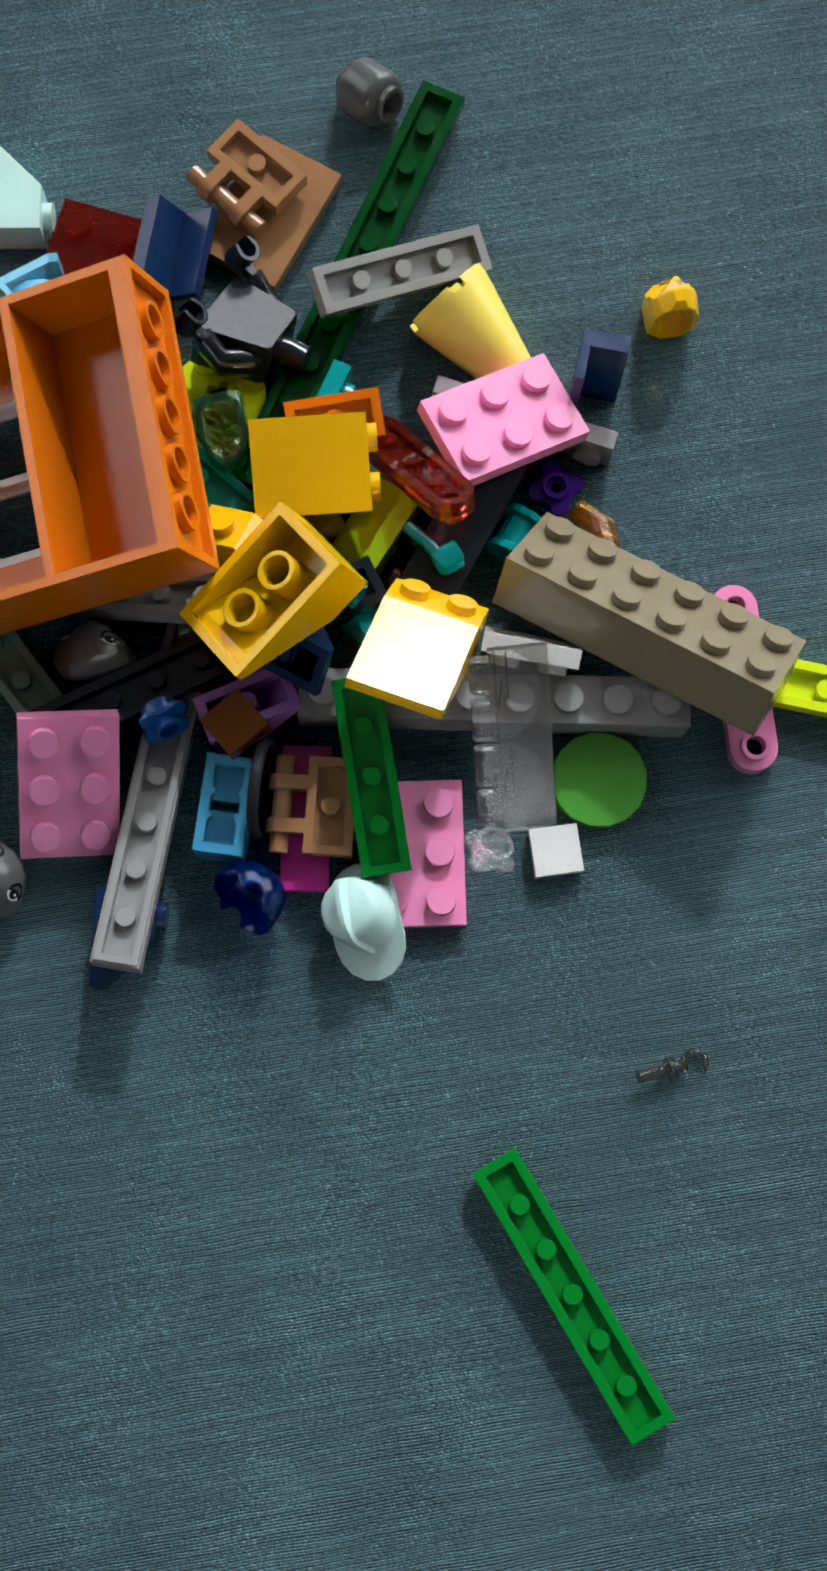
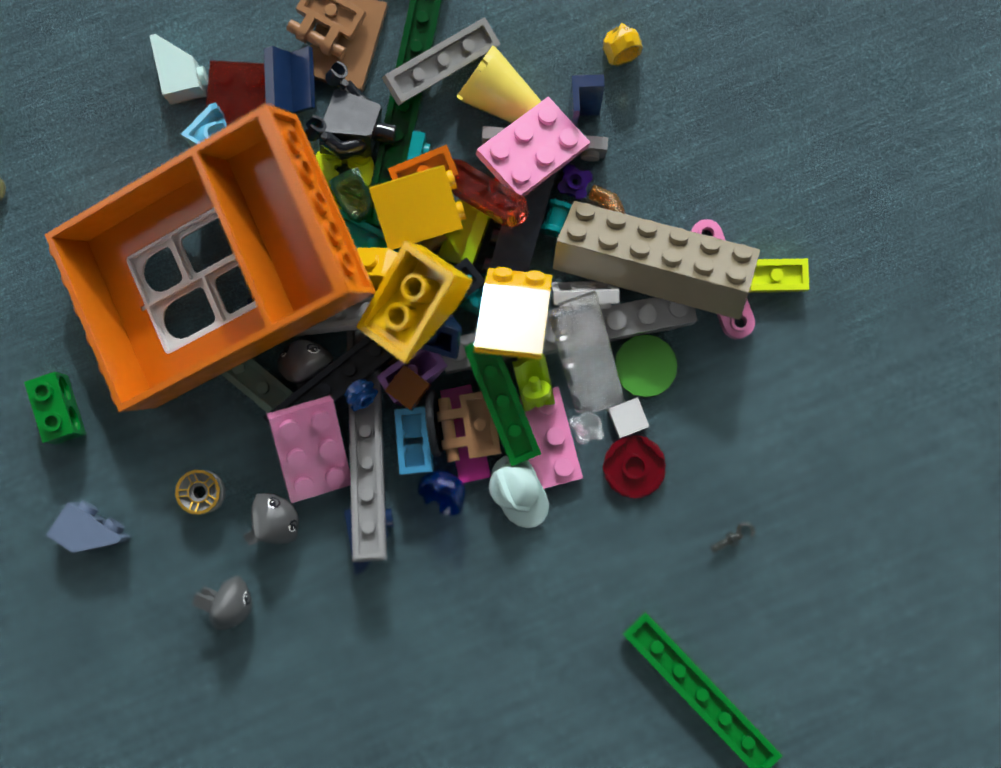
camera: 10 degrees left, 5 degrees up
(424, 758) = (533, 382): none -> lime hips
(446, 558) = (516, 248): teal hand -> none
(548, 926) = (634, 466): none -> dark red tile

